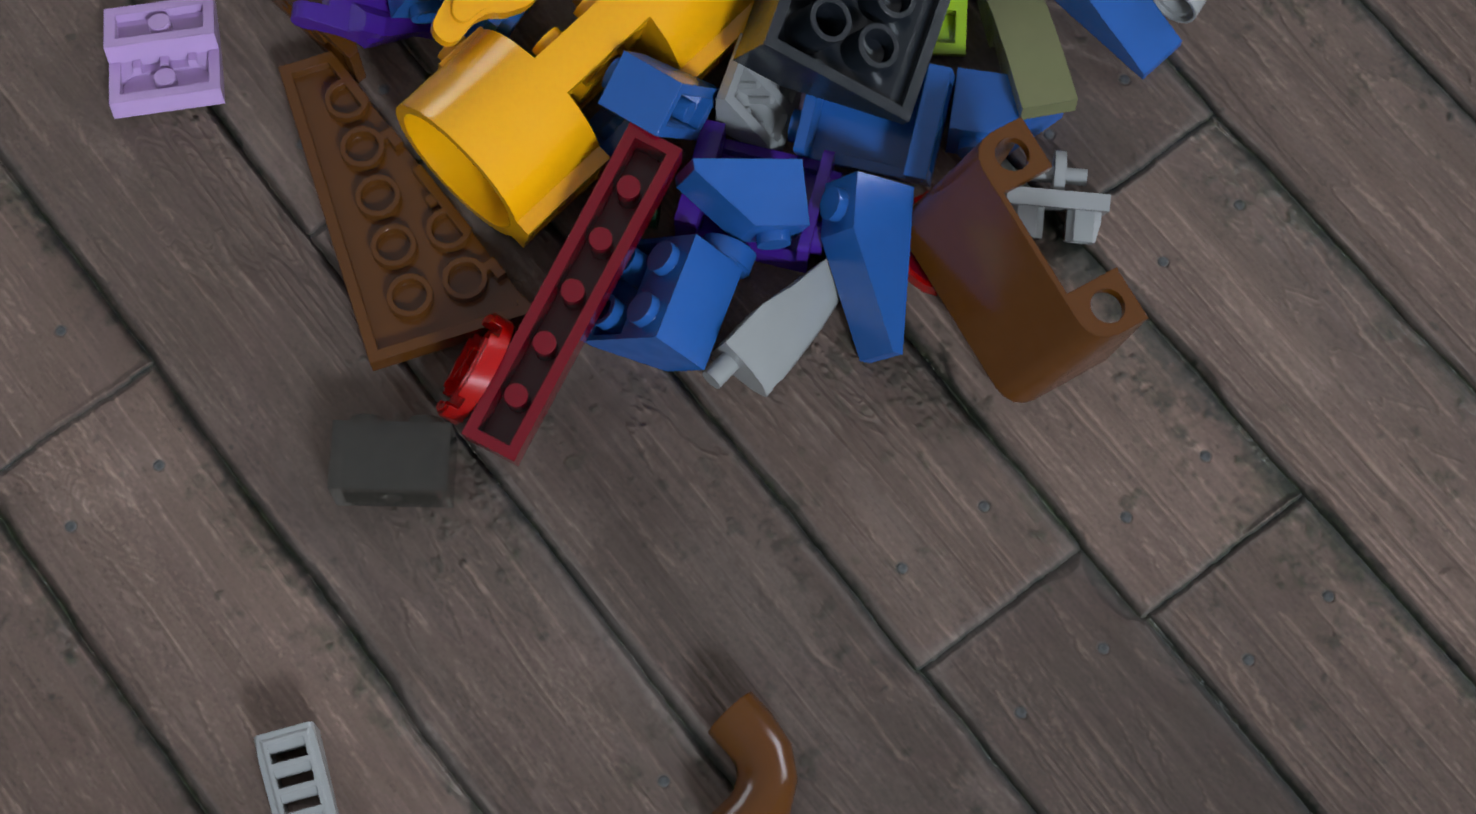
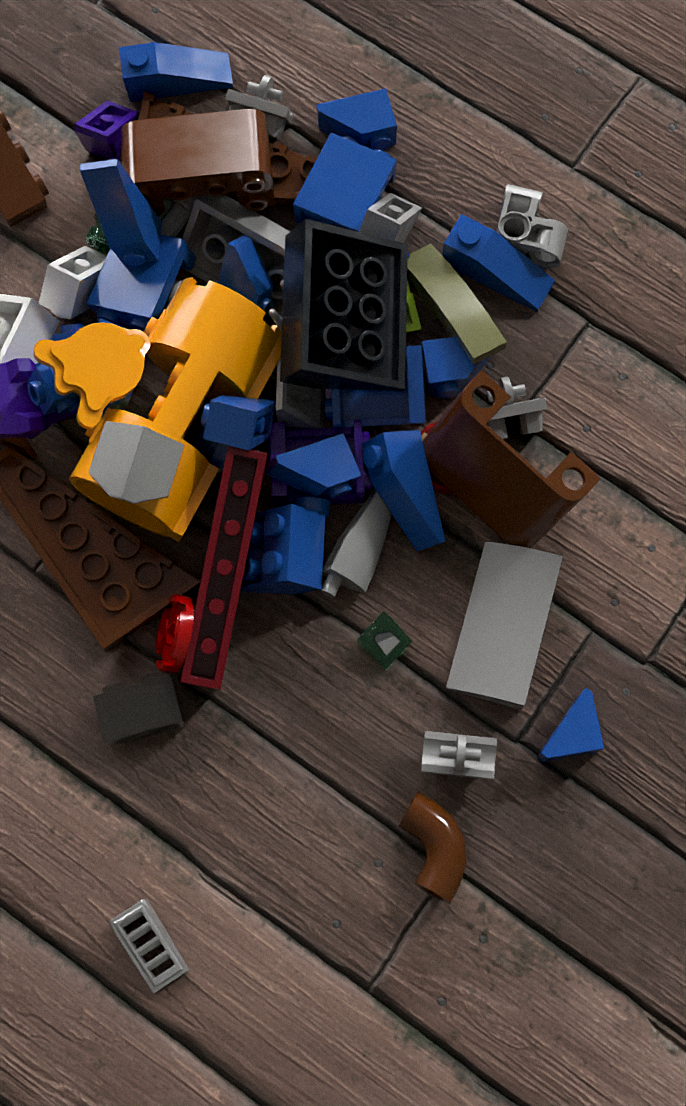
camera: 15 degrees left, 5 degrees up
(492, 104) = (135, 462): none -> light grey slope
(771, 469) = (384, 640): none -> clear green slope
(826, 658) = (459, 755): none -> light grey hips
(953, 498) = (504, 624): none -> light grey slope
(1006, 680) = (576, 733): none -> blue slope

